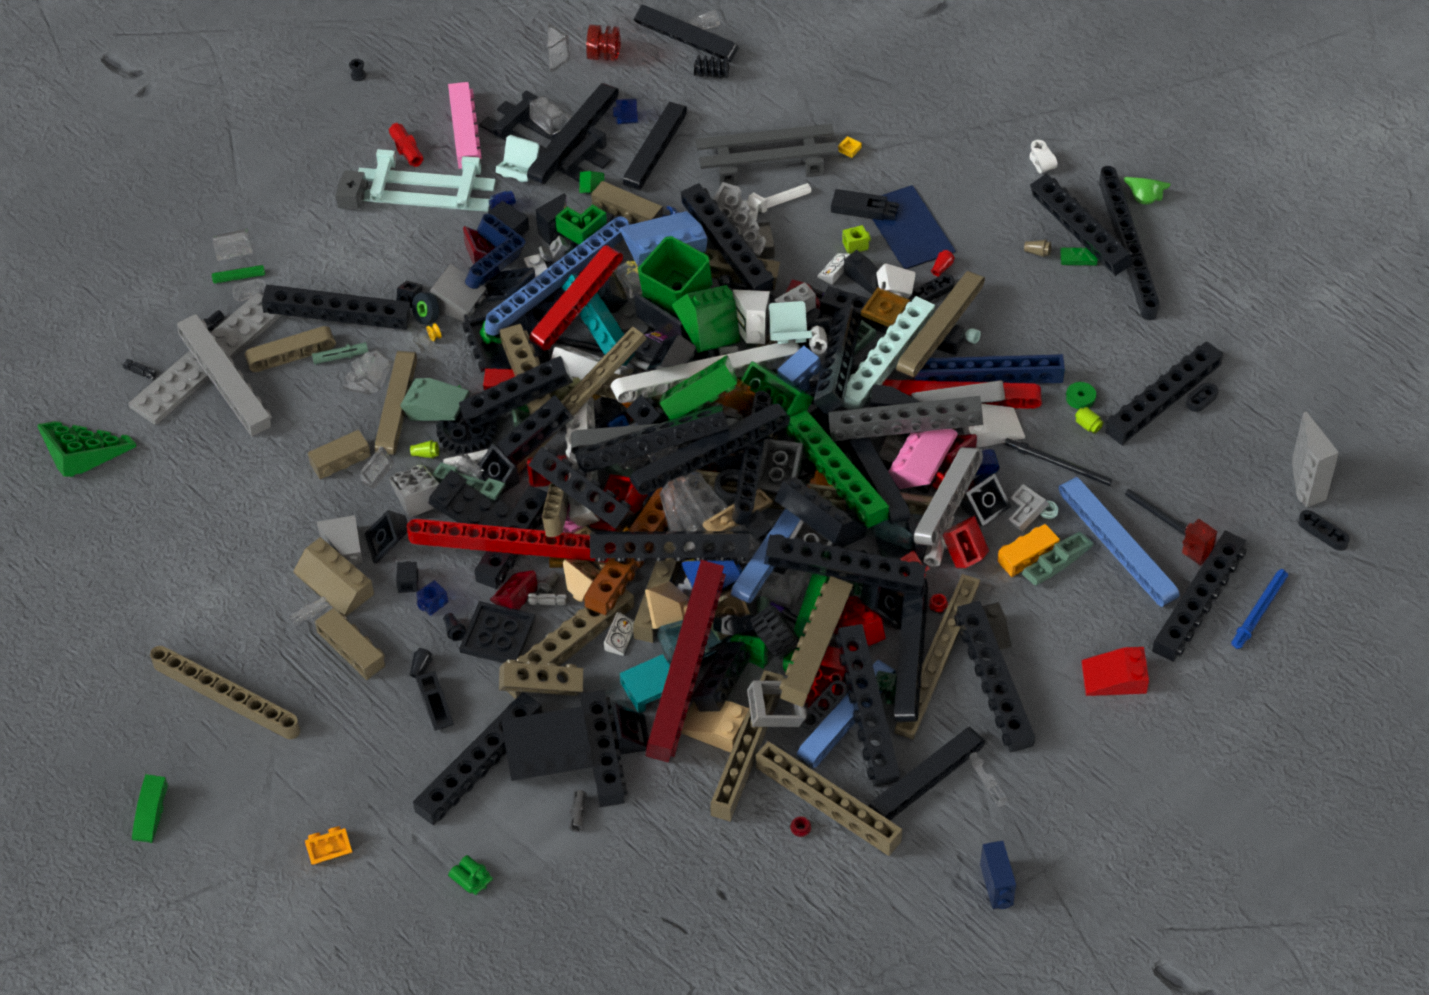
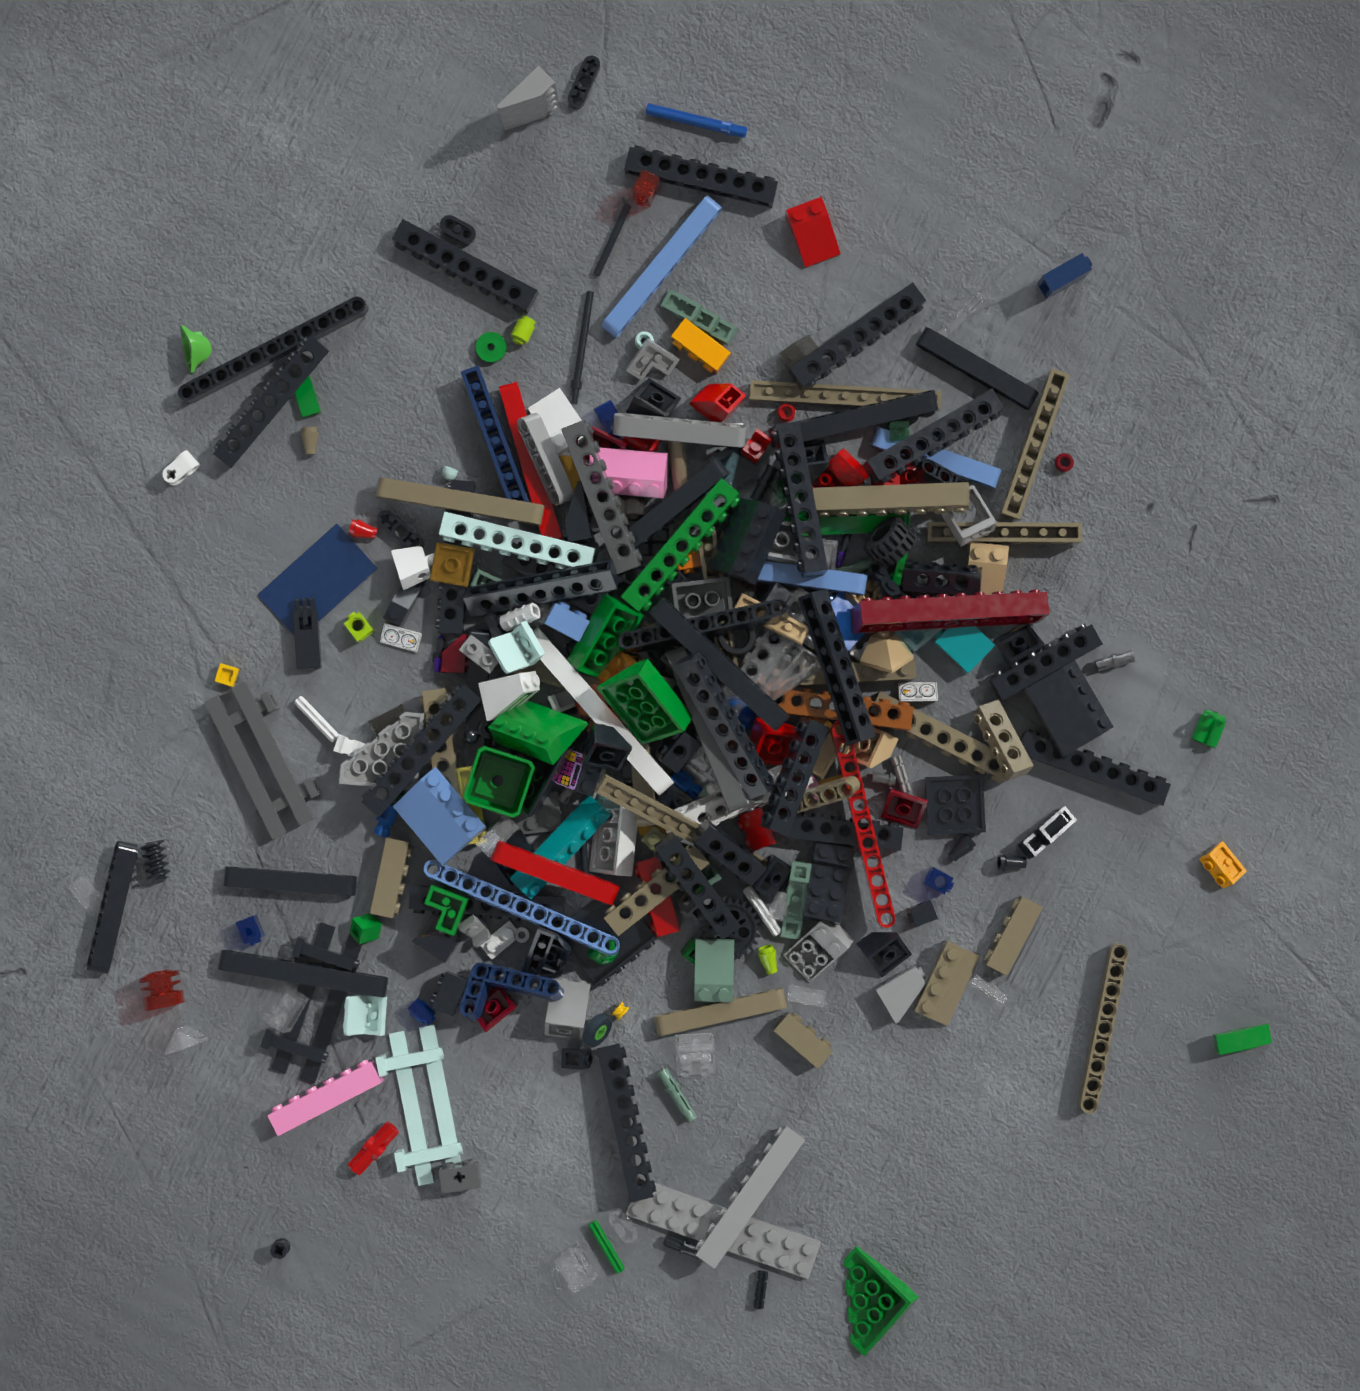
camera: 110 degrees left, 35 degrees up
(289, 349) = (688, 1147): dark tan beam -> none

